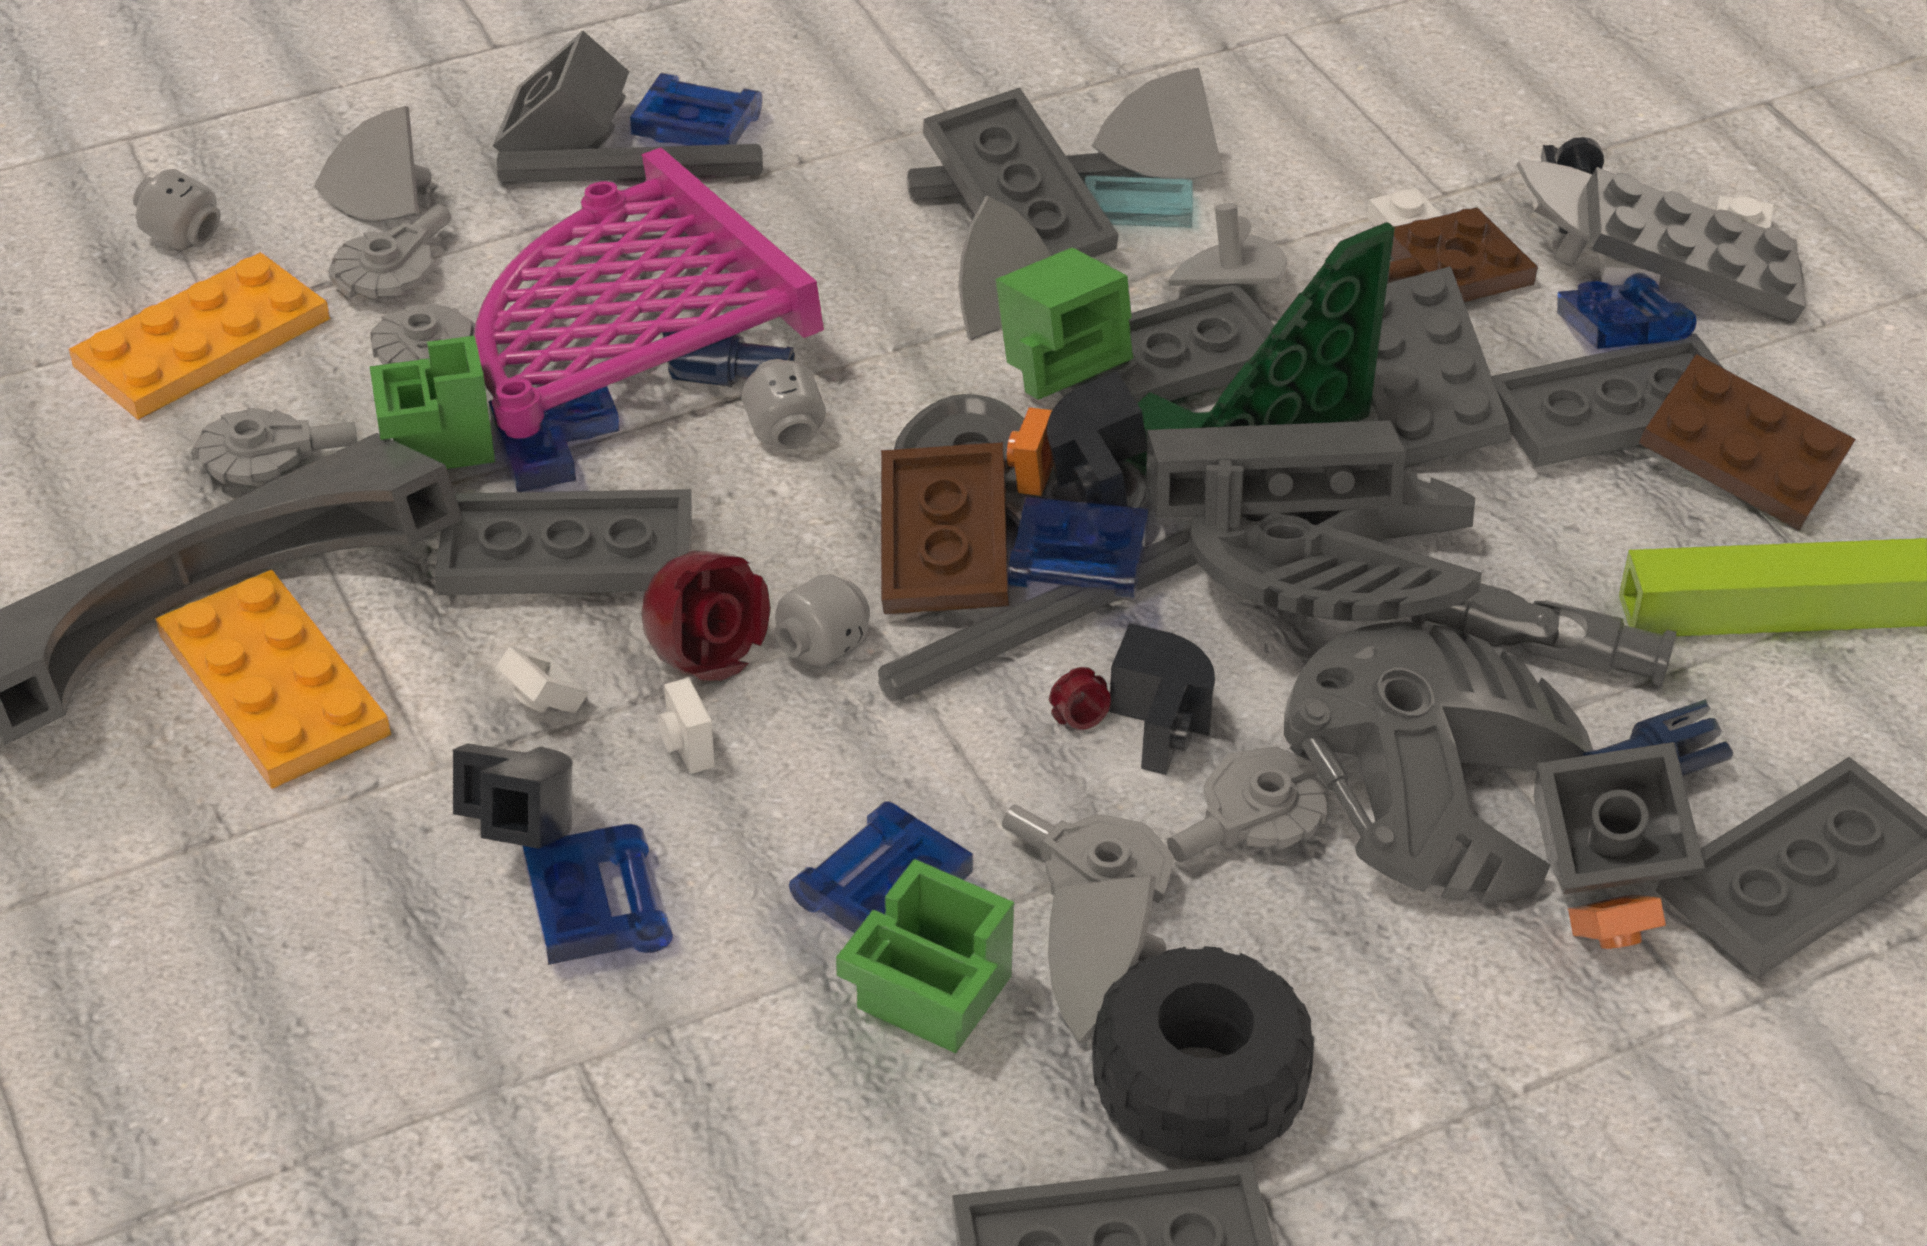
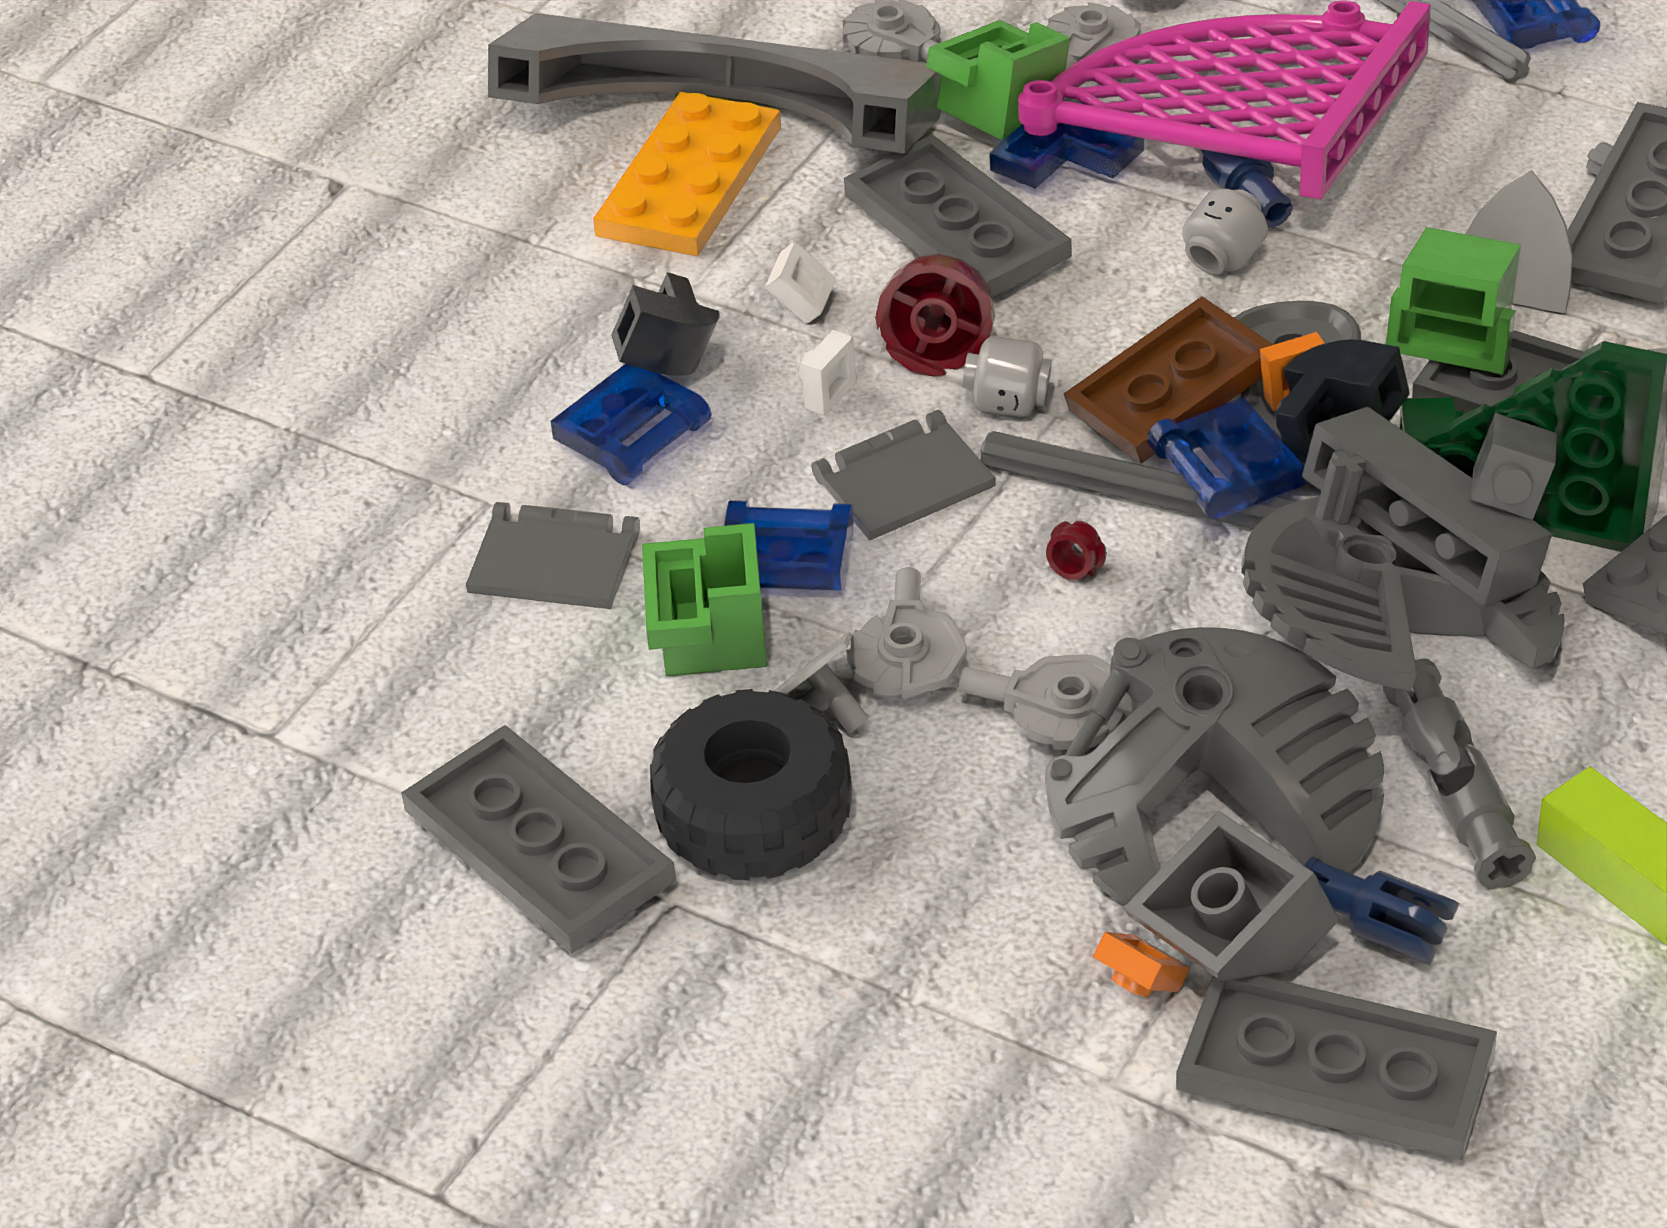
camera: 60 degrees right, 0 degrees up
(714, 1050) = (553, 556): none -> dark grey piece
(855, 753) = (904, 475): none -> dark grey piece
(1167, 686) = (1127, 592): black brick -> none
(1319, 390) = (1514, 466): none -> dark grey brick

